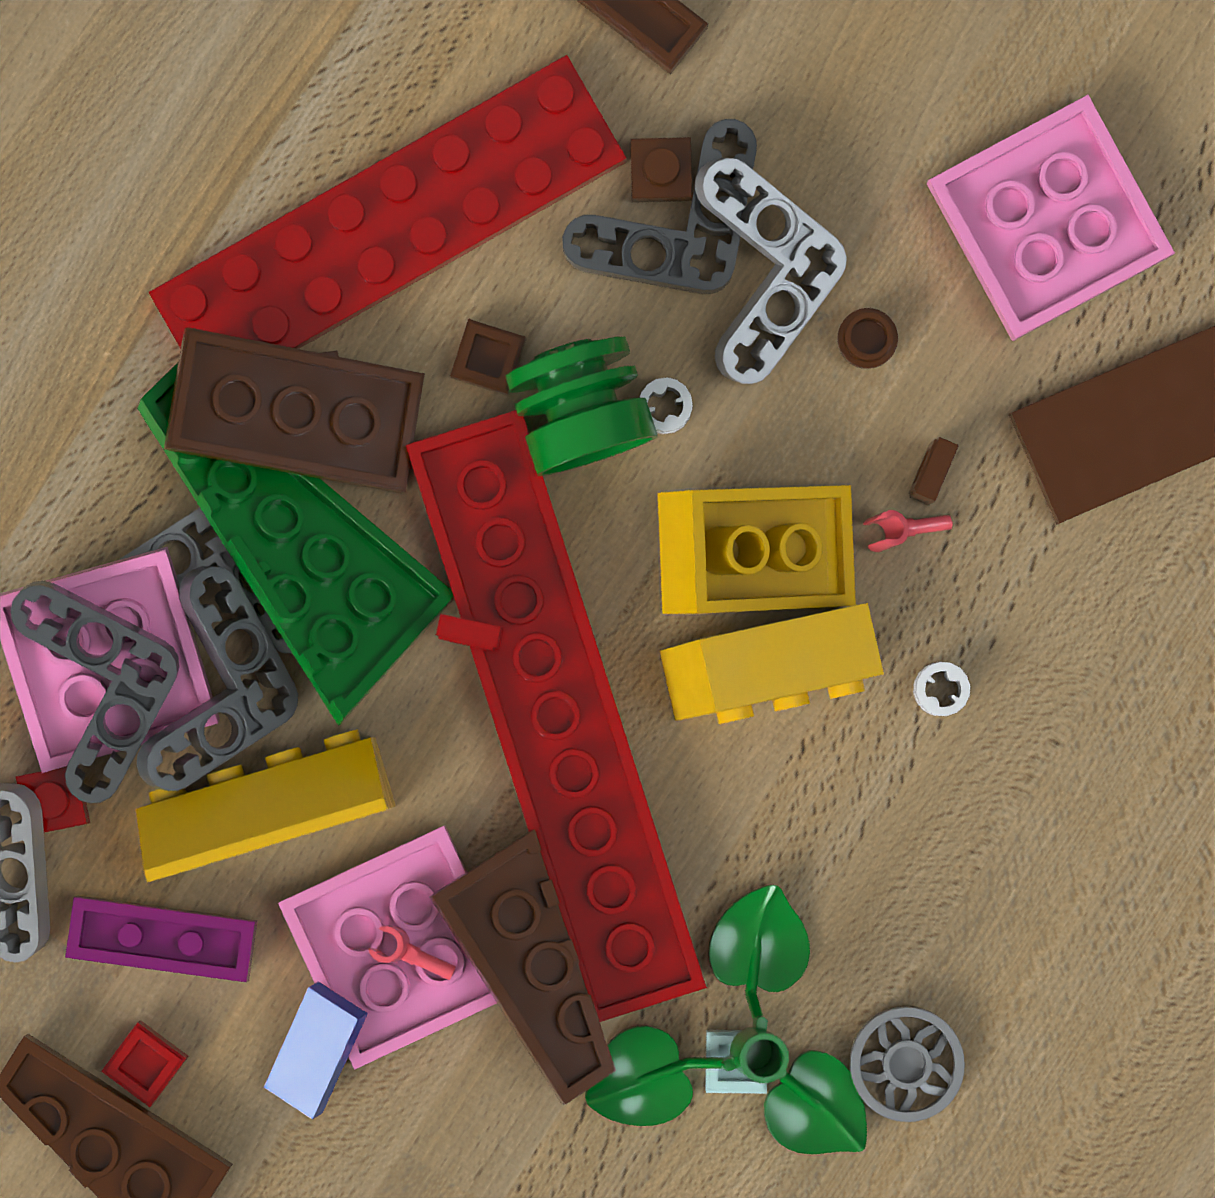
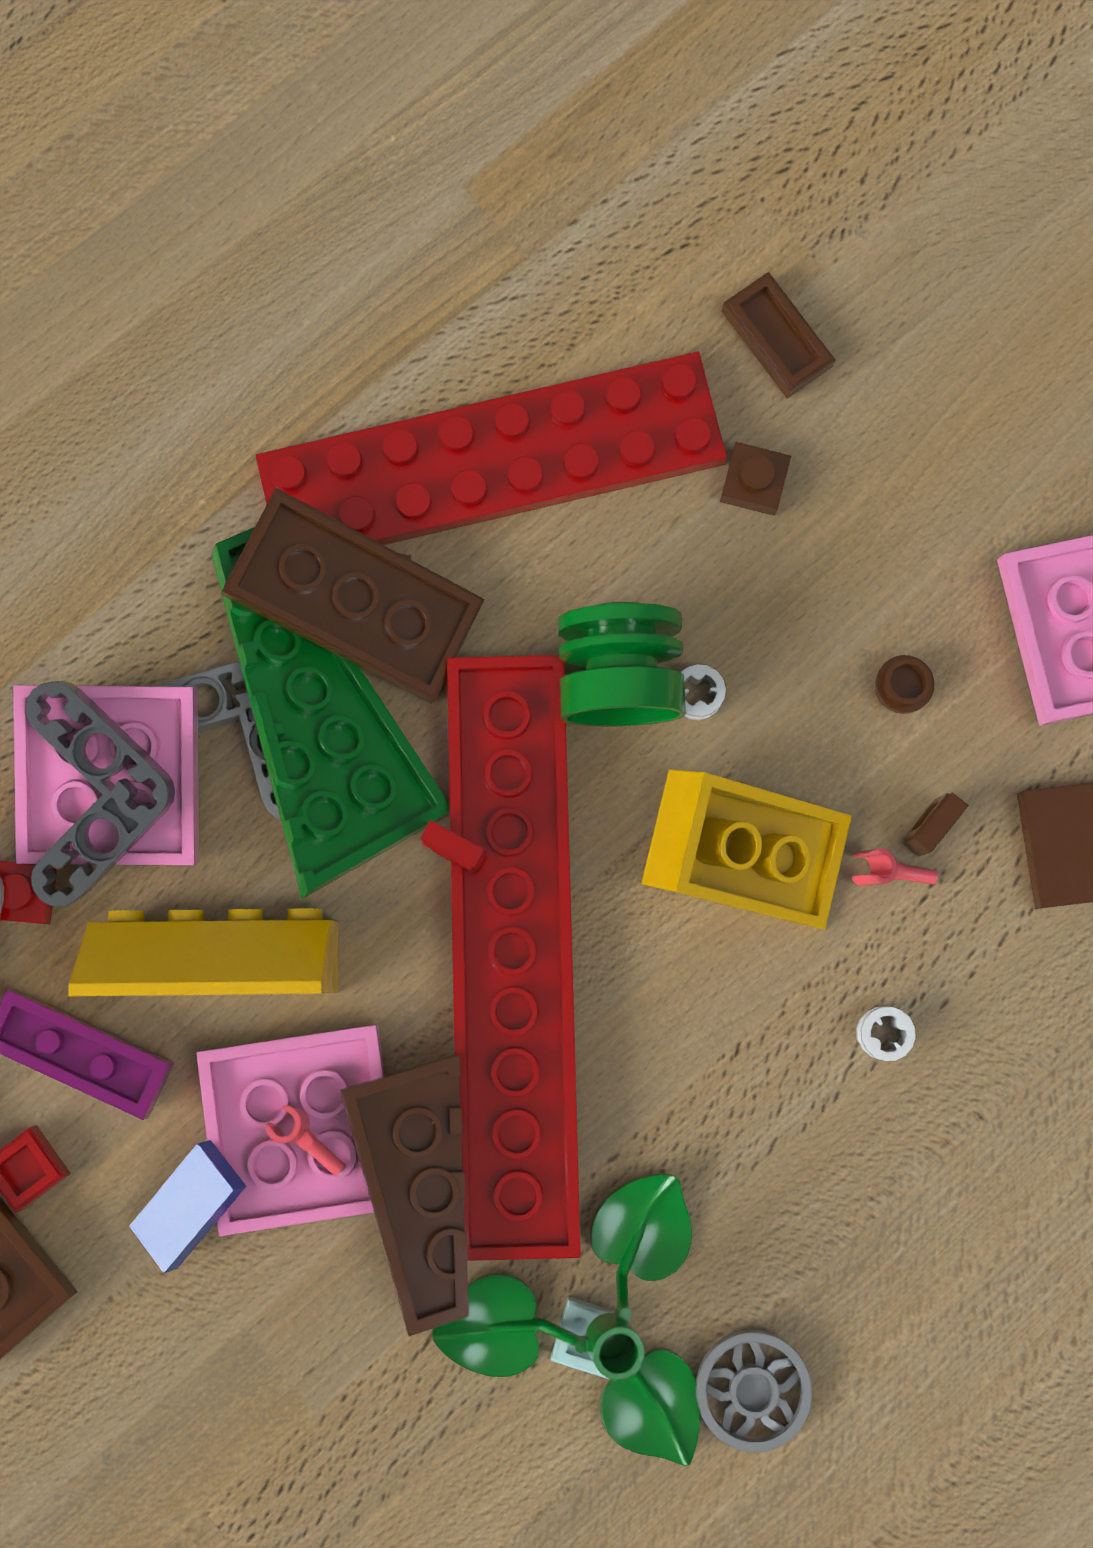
camera: 20 degrees right, 5 degrees down
(236, 701) = (216, 850): dark grey beam -> none
(487, 356) = (544, 599): reddish brown tile -> none
(678, 245) = (754, 550): dark grey beam -> none
(773, 664) = (733, 961): yellow wedge -> none
(785, 252) = (850, 583): light grey beam -> none

